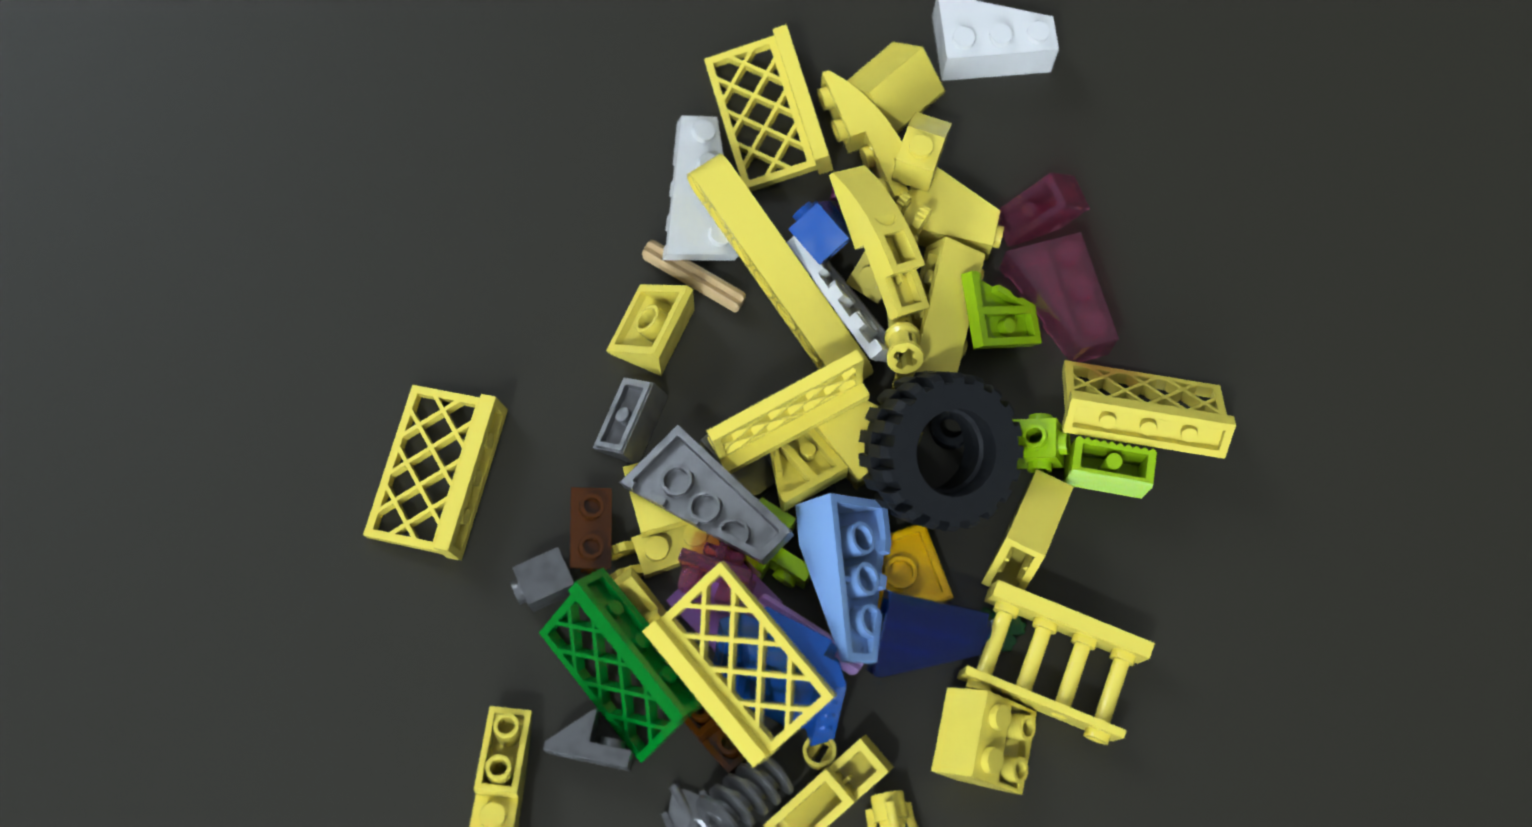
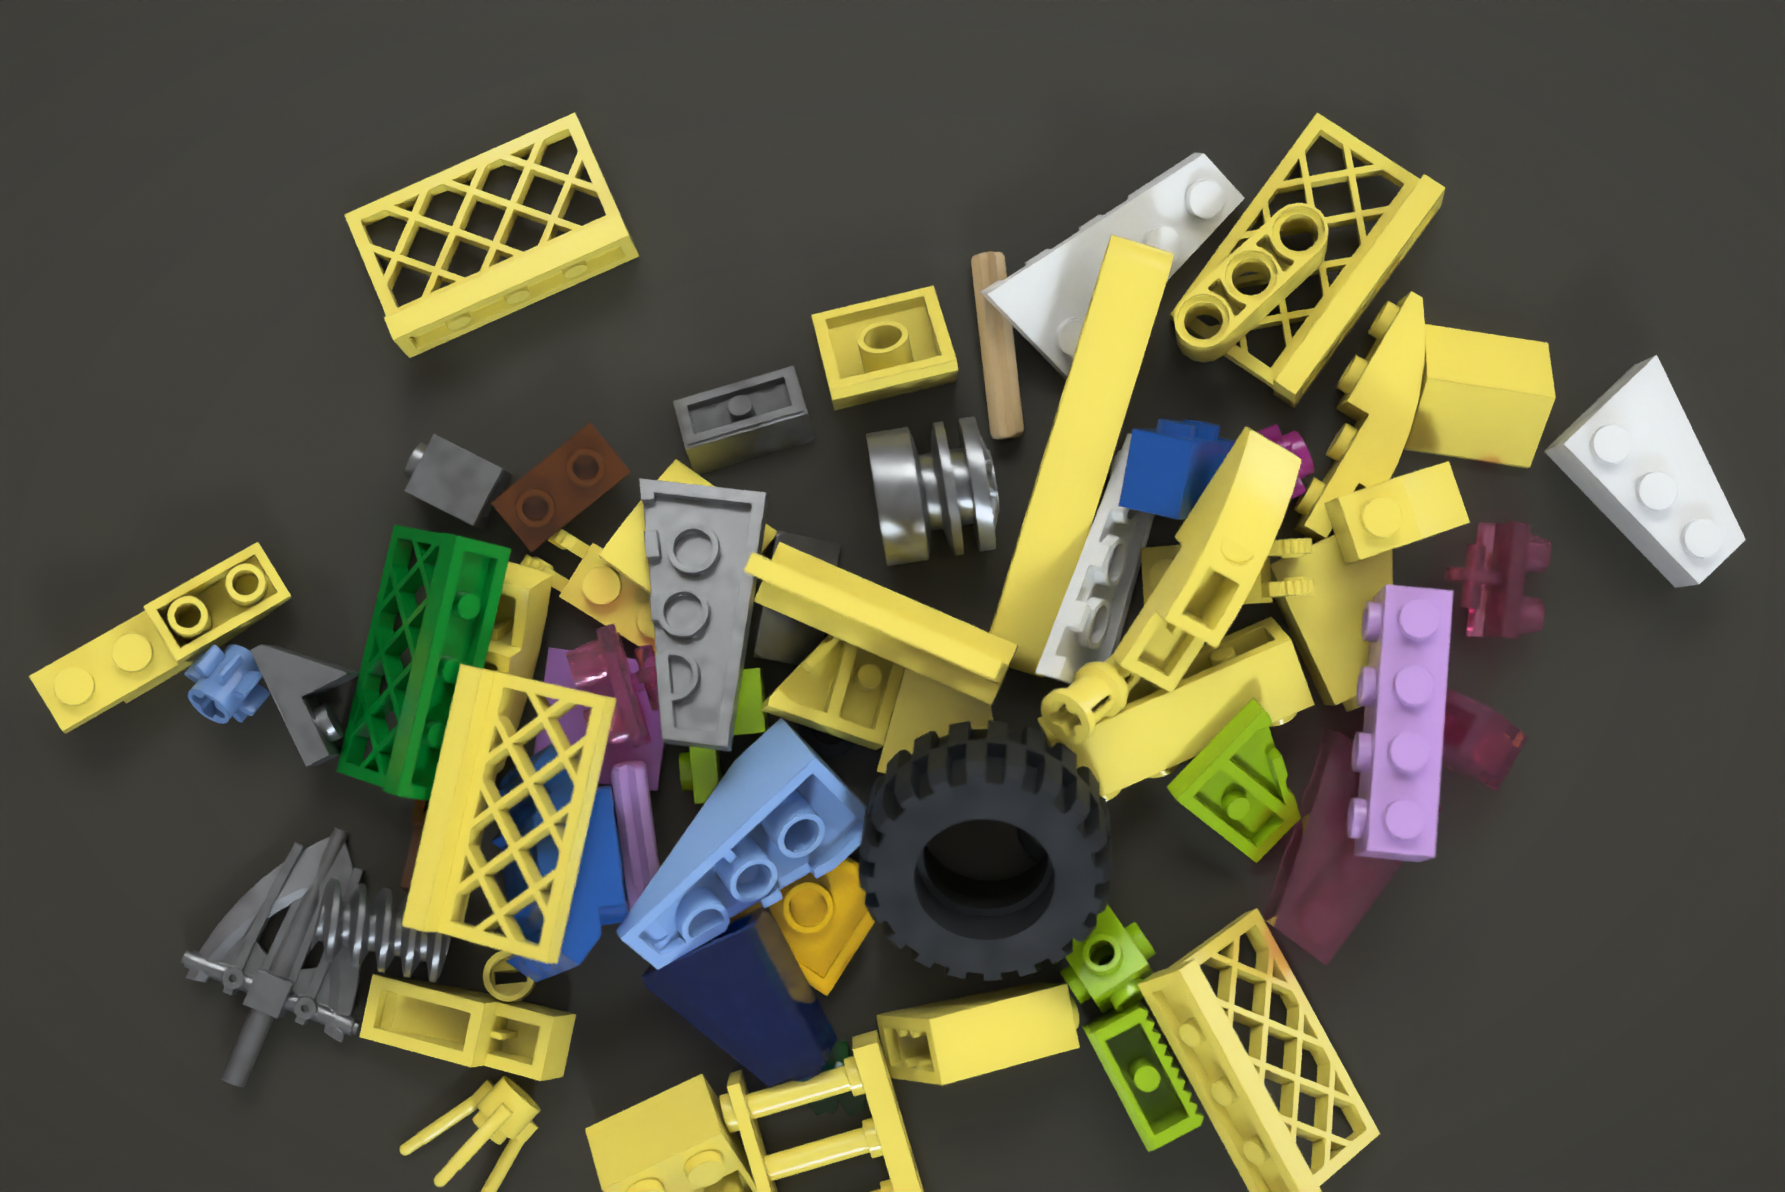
camera: 55 degrees right, 15 degrees up
(549, 780) = (226, 684): none -> medium blue gear
(740, 349) = (932, 490): none -> flat silver wheel
(755, 121) = (1259, 254): none -> light yellow beam
(988, 138) = (1496, 579): none -> clear pink hips
(1028, 213) = (1402, 723): none -> lavender brick

